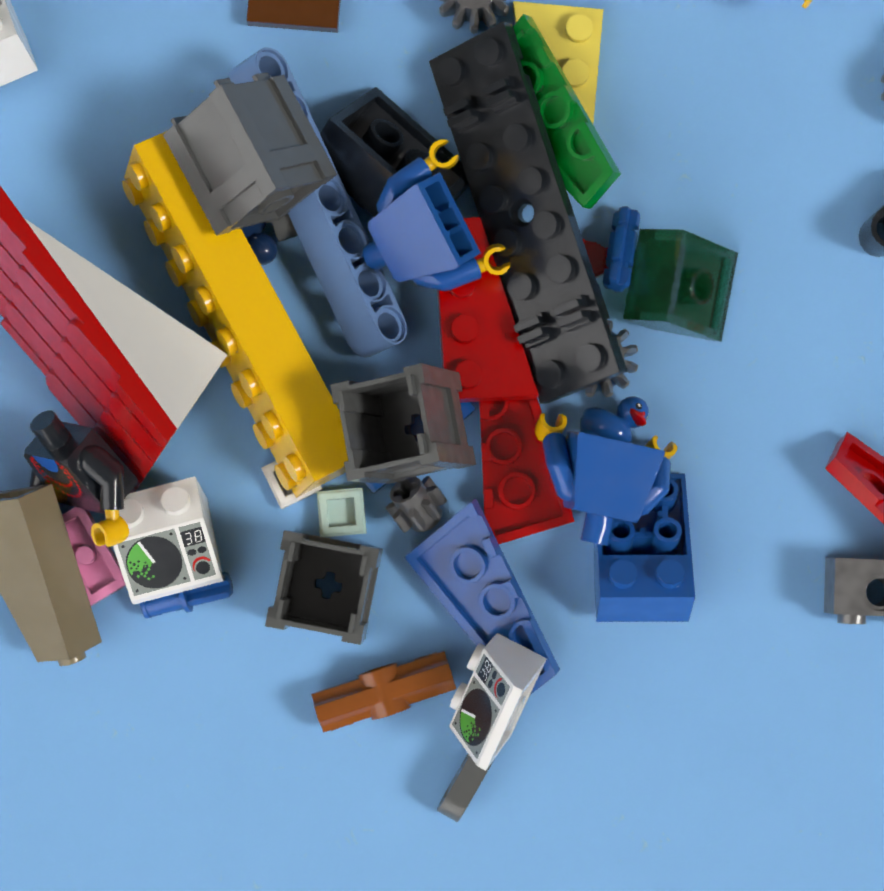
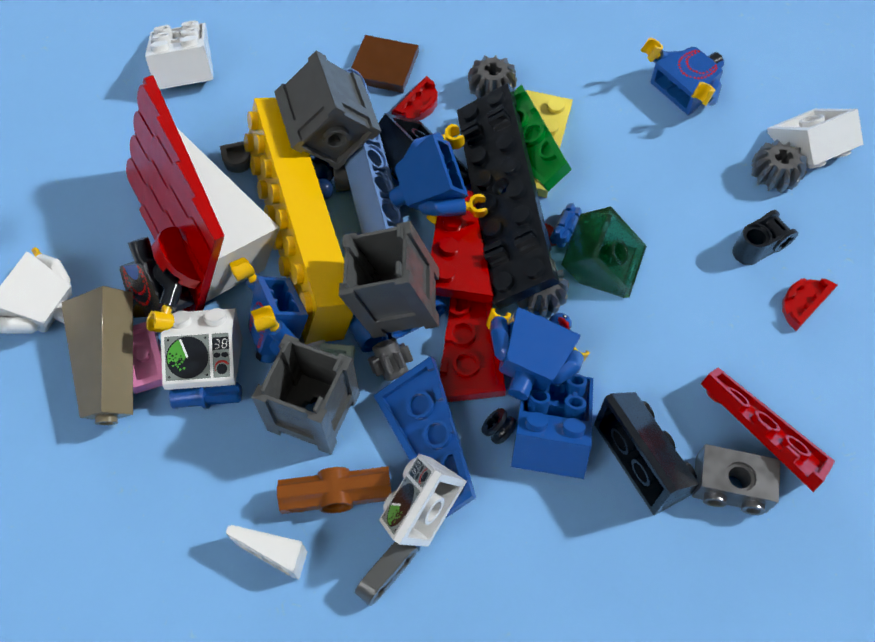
camera: 10 degrees right, 25 degrees down
(100, 440) = (172, 255): none -> red tile
(111, 204) = (235, 157): none -> dark grey tile
(249, 478) = (273, 311): none -> blue torso
(331, 780) = (278, 551): none -> white slope
(367, 50) = (419, 102): none -> red tile
(573, 570) = (499, 426): none -> black bush
(764, 574) = (645, 451): none -> black slope

